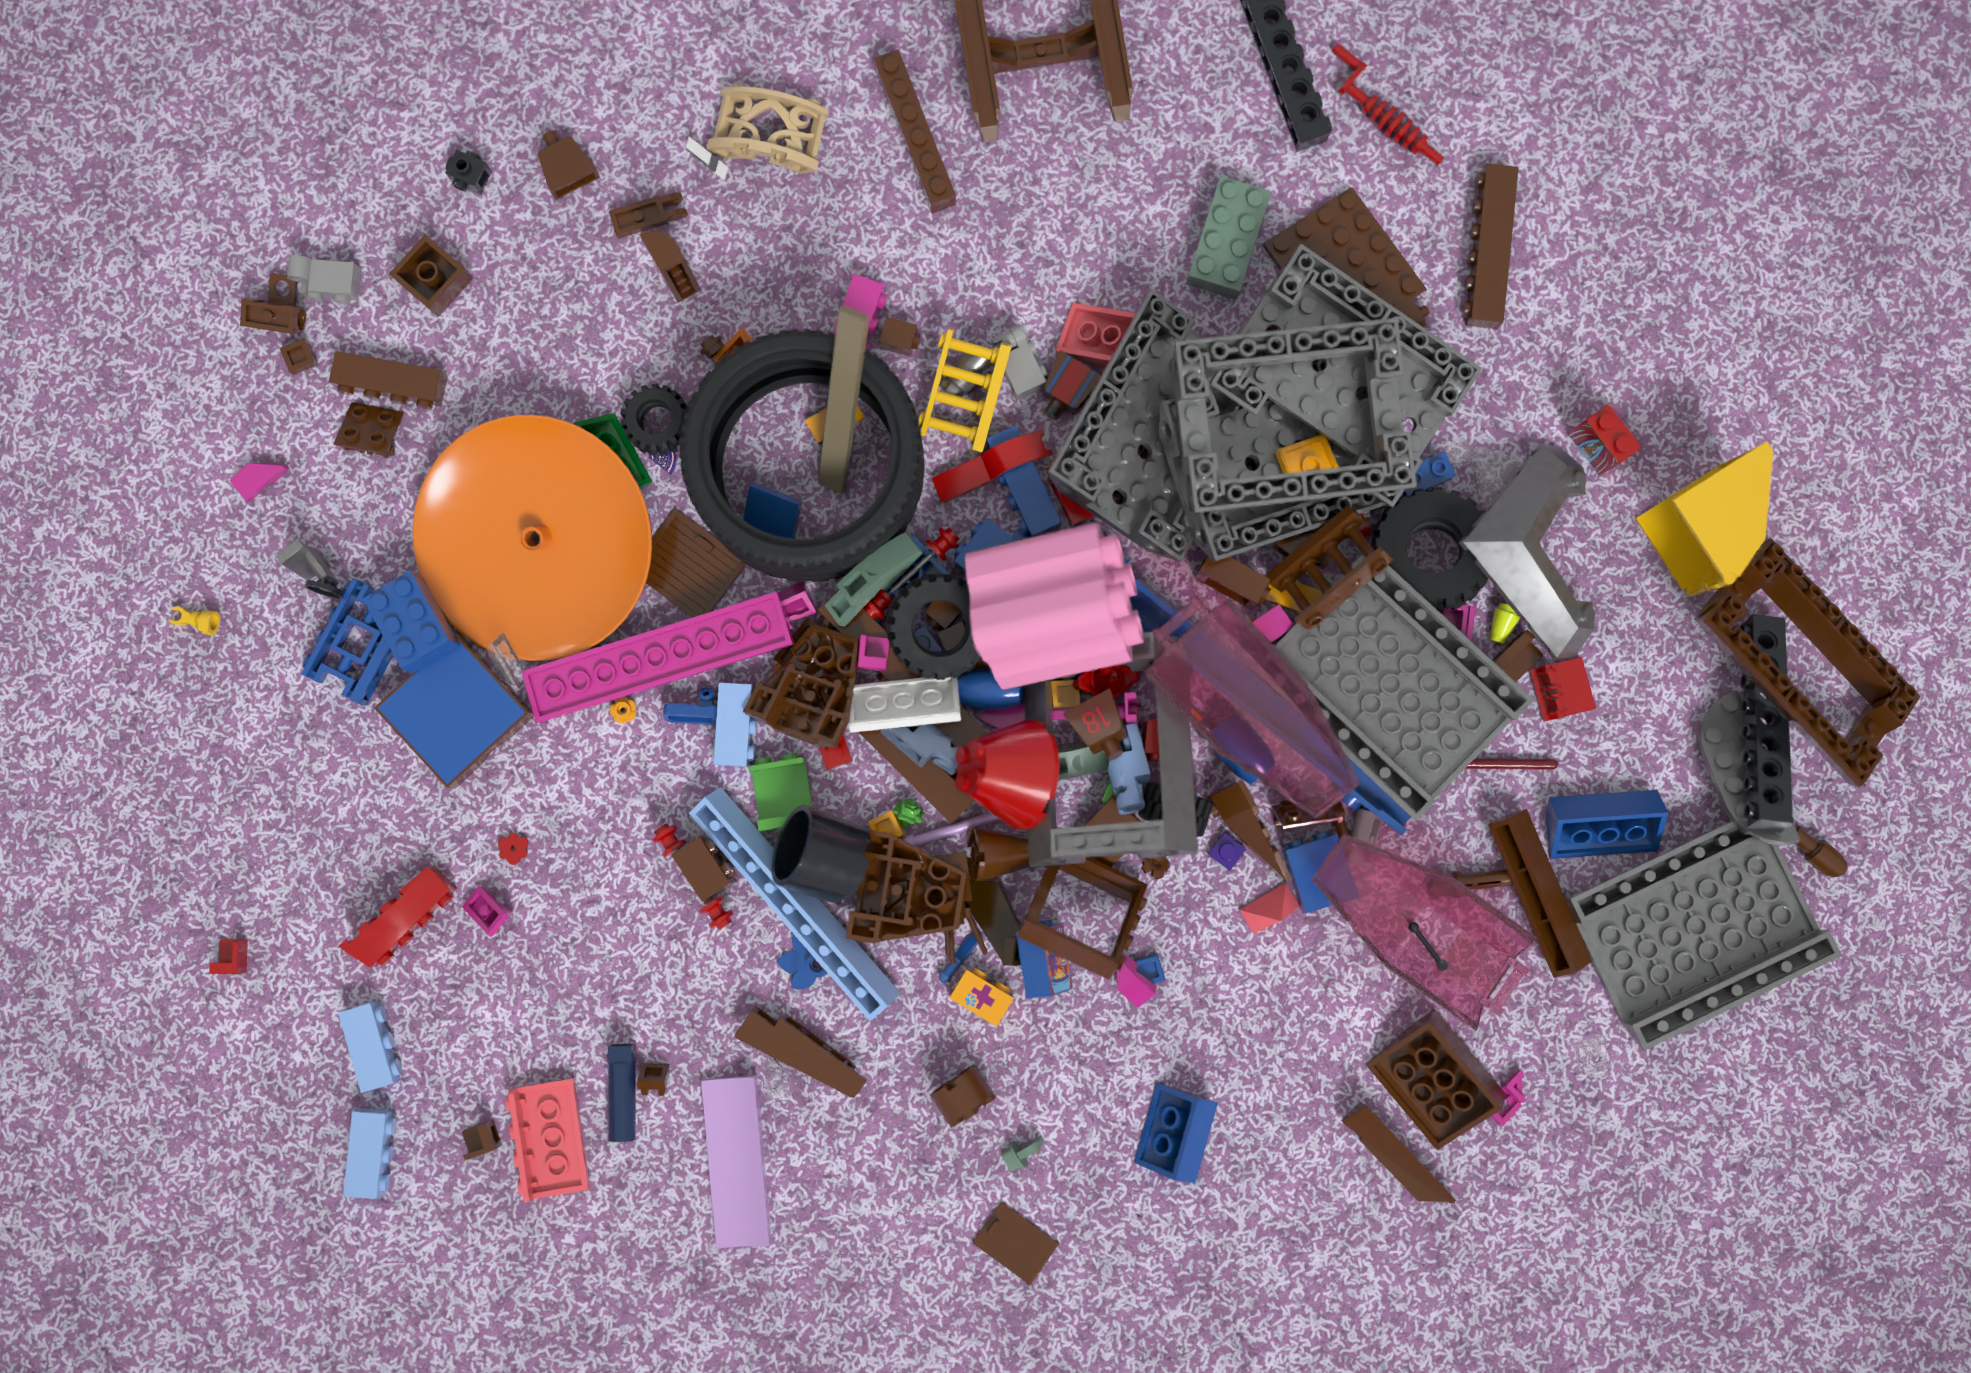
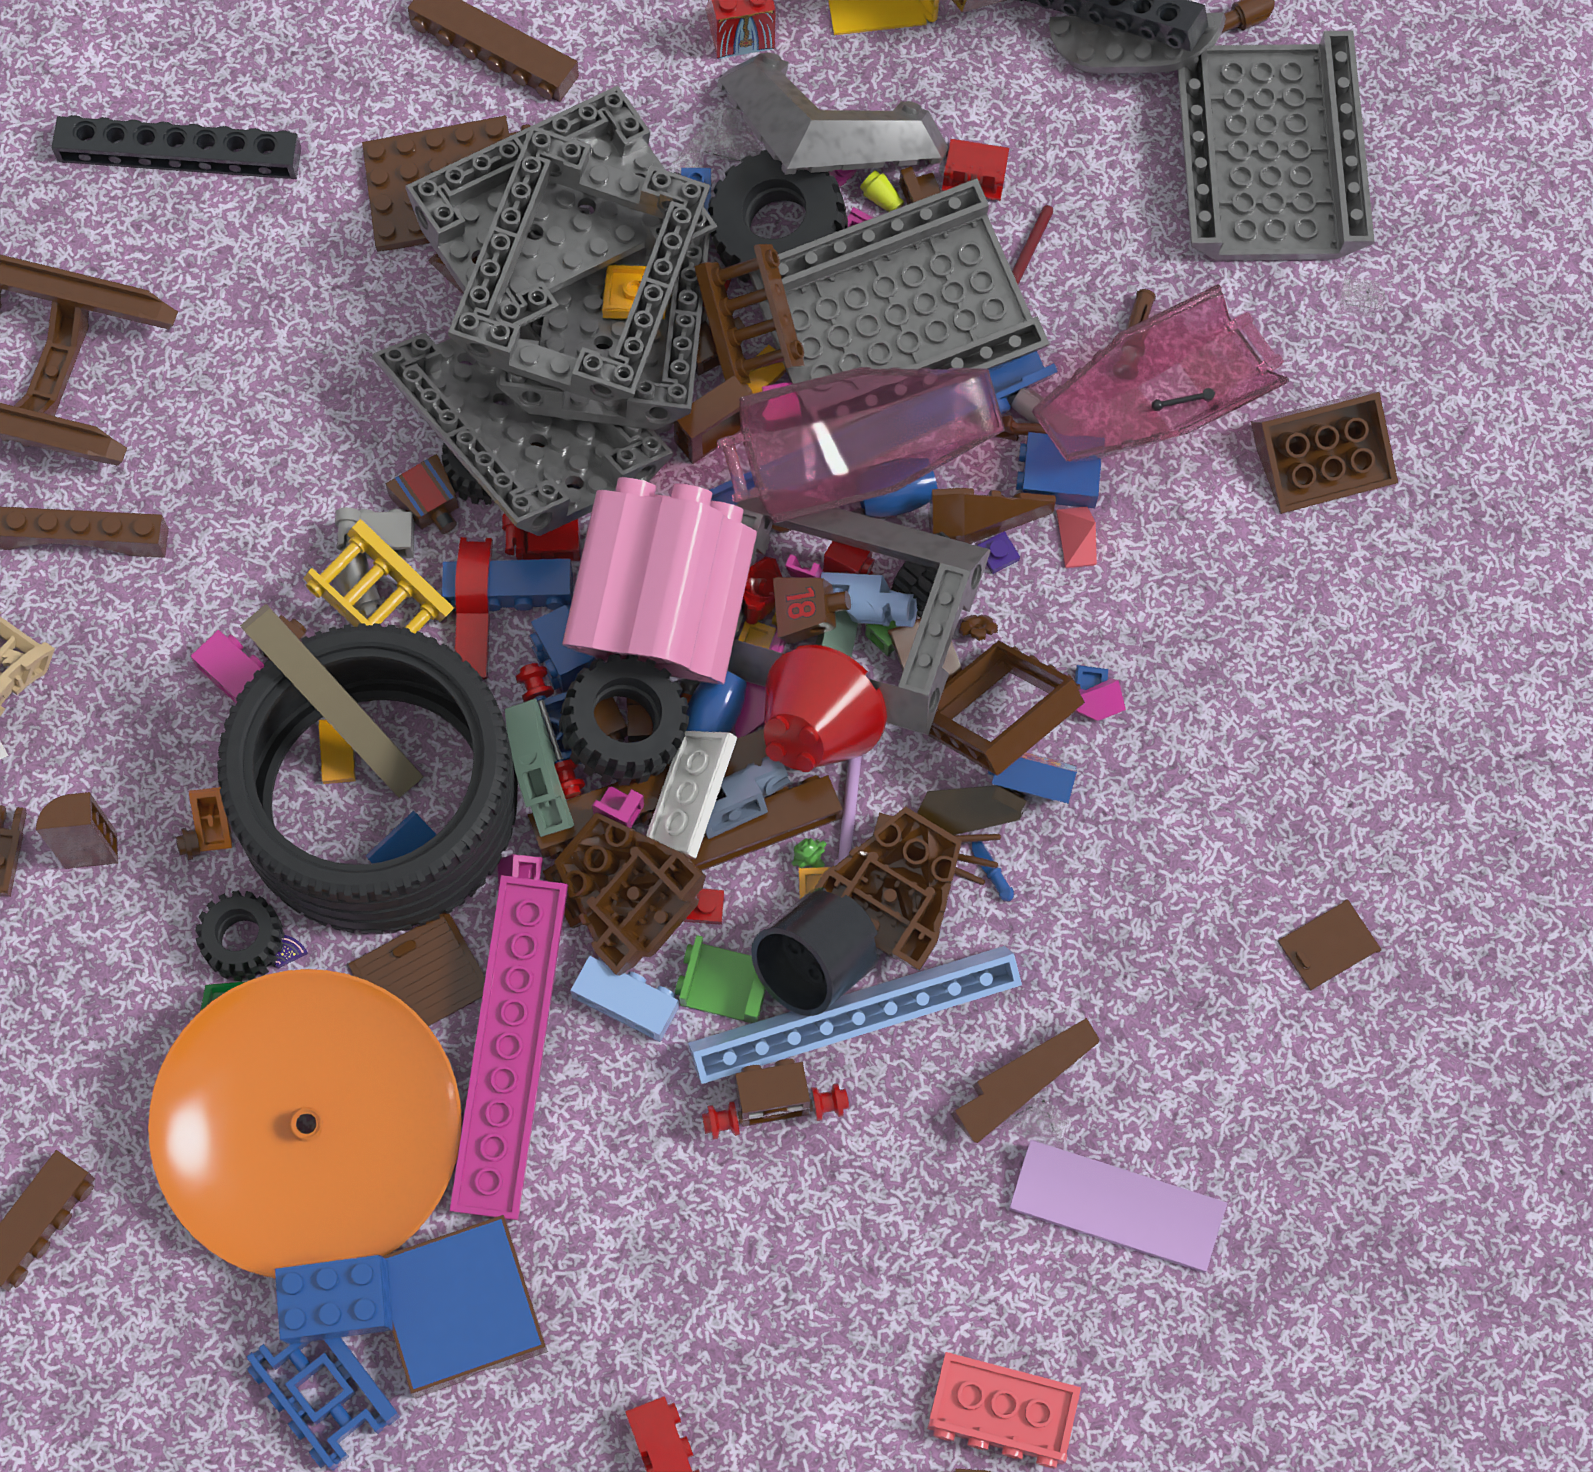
camera: 65 degrees left, 15 degrees down
(256, 477) = (65, 1431): dark pink slope -> none
(308, 564) = (196, 1404): flat silver piece -> none
(369, 429) = (79, 1270): reddish brown hinge -> none
(486, 910) = (708, 1367): dark pink slope -> none
(506, 662) = (432, 1223): clear slope -> none
(506, 845) = (646, 1301): red plant -> none
(621, 1092) = (985, 1302): dark blue piece -> none
(628, 715) = (558, 1114): light orange plate -> none
(653, 1077) = (983, 1258): reddish brown tile -> none
(703, 713) = (593, 1034): blue piece -> none
(800, 964) = (925, 1043): blue plate -> none
(962, 1096) = (1145, 923): reddish brown brick -> none
(982, 996) = (1044, 861): light orange brick -> none
(996, 853) = (896, 775): reddish brown cone -> none
(1016, 1156) = (1234, 903): sand green piece -> none
(1093, 333) = (389, 441): coral slope -> none
(1176, 1133) = (1275, 726): blue slope -> none
(1228, 237) = (352, 276): sand green brick -> none
(1291, 816) = (991, 460): reddish brown hinge -> none
(1378, 111) = (297, 84): red piece -> none
(1395, 1156) = (1386, 521): reddish brown wedge -> none
(1514, 1097) = (1363, 383): dark pink slope -> none
(1540, 893) = (1173, 272): reddish brown brick -> none
(1605, 823) = (1130, 187): blue slope -> none

